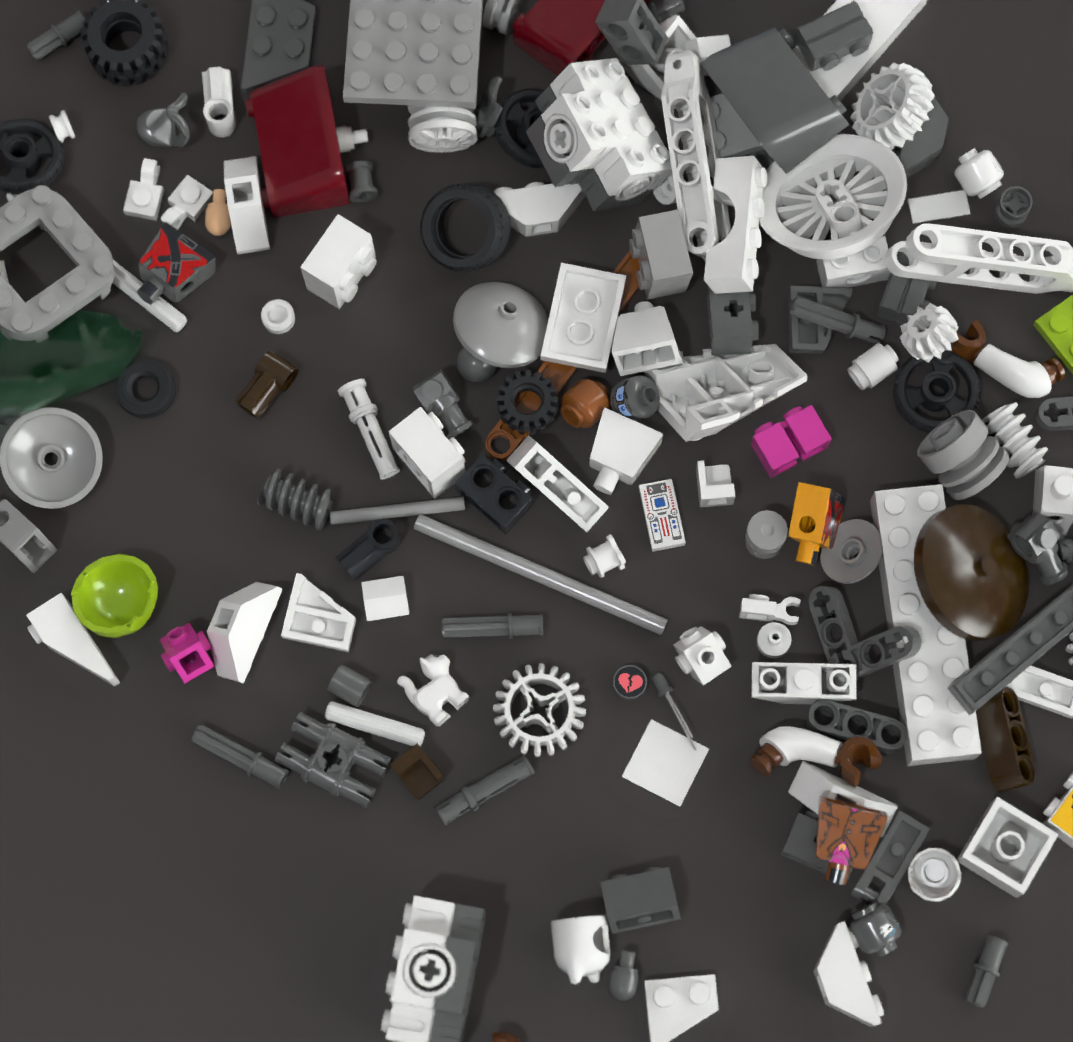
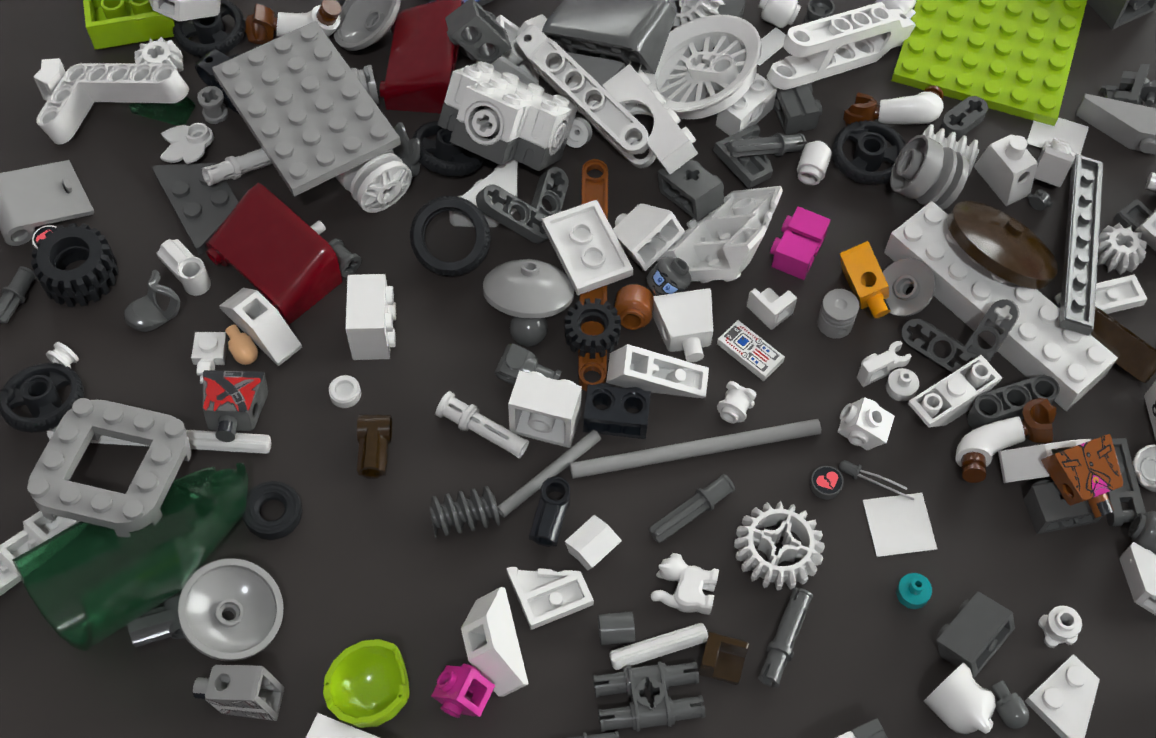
camera: 40 degrees left, 15 degrees down
(145, 196) = (168, 369): white plate -> none
(319, 24) = (234, 167): none -> white pin
(566, 251) = (529, 214): none -> dark grey beam
(626, 836) = (914, 591): none -> teal tile
(661, 254) = (614, 167): light grey brick -> none
(713, 948) = (1060, 626): none -> white brick
(929, 332) = (838, 112): white gear -> none
(1037, 543) = (1024, 200): dark grey connector -> none

